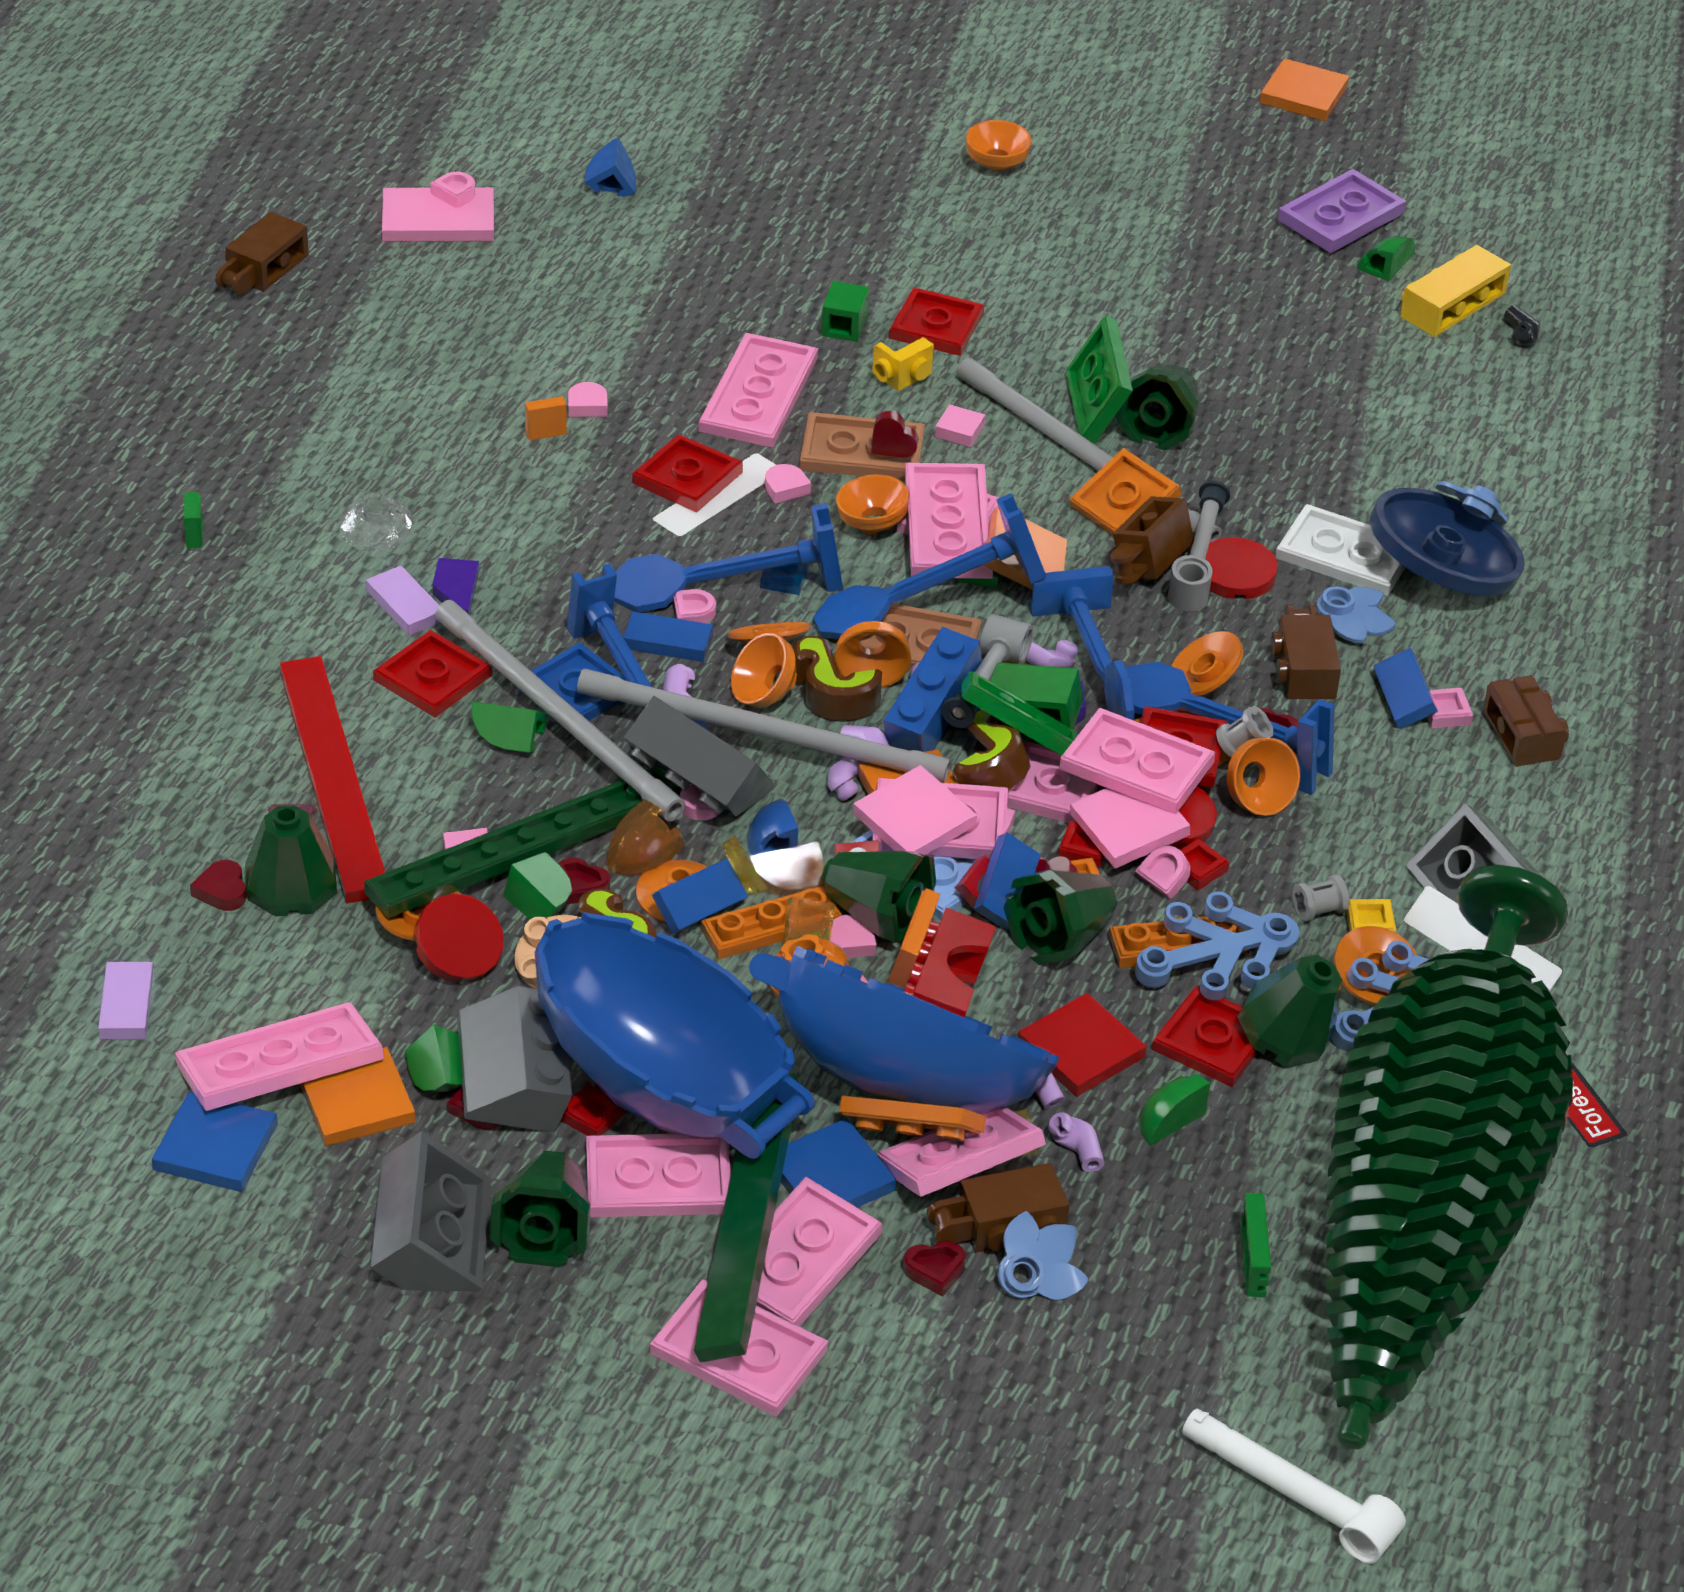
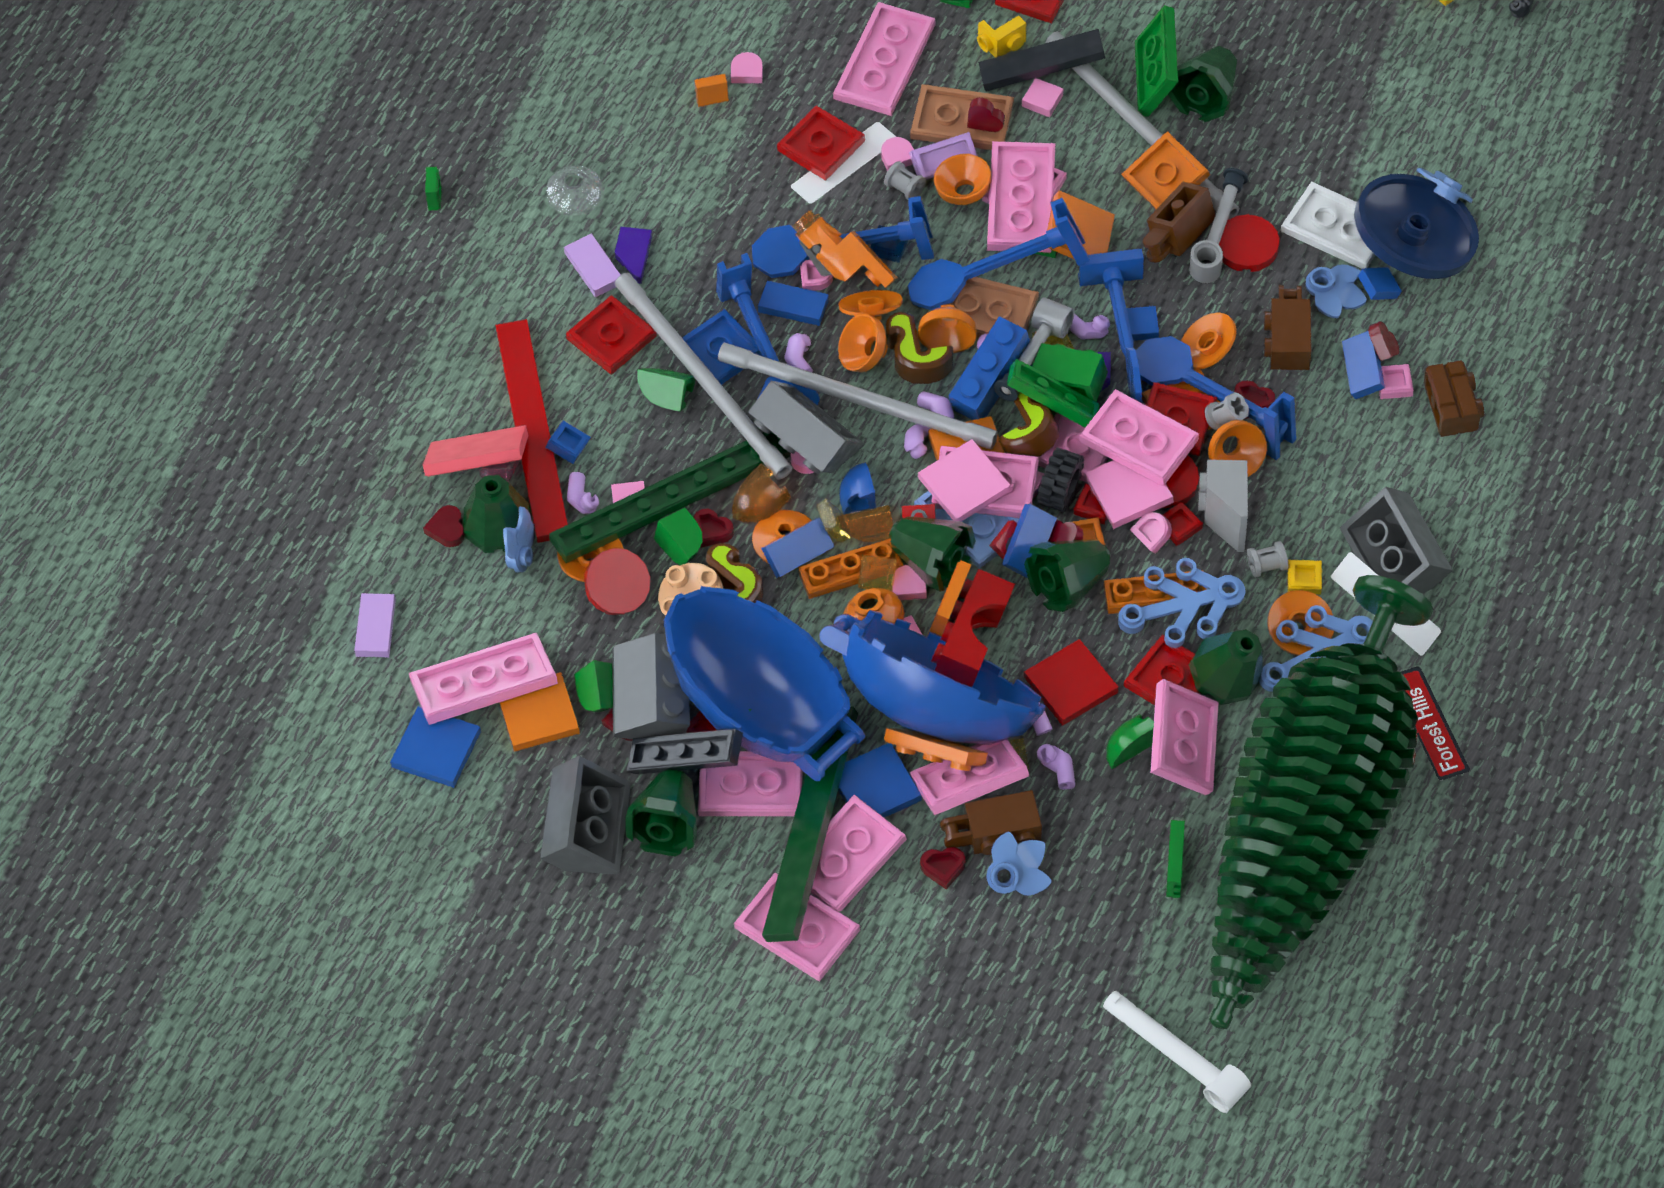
camera: 10 degrees right, 15 degrees up
(259, 792) = (475, 451): none -> coral tile
(323, 895) = (519, 542): none -> medium blue plate
(382, 787) = (568, 442): none -> blue tile
(396, 844) = (577, 497): none -> lavender arm
(569, 1124) = (685, 751): none -> black tile
(725, 579) = (837, 255): none -> orange plate
(795, 506) = (904, 180): none -> light grey bush
(824, 483) = (931, 156): none -> lavender tile
(958, 383) = (1042, 60): none -> black tile
(1041, 810) = (1060, 479): none -> black tyre
(1122, 647) = (1143, 323): none -> blue tile
(1246, 1099) = (1184, 737): none -> bright pink tile
(1260, 828) = (1225, 500): none -> light grey slope
(1409, 605) = (1379, 283): none -> blue tile
(1427, 660) = (1383, 341): none -> dark red tile

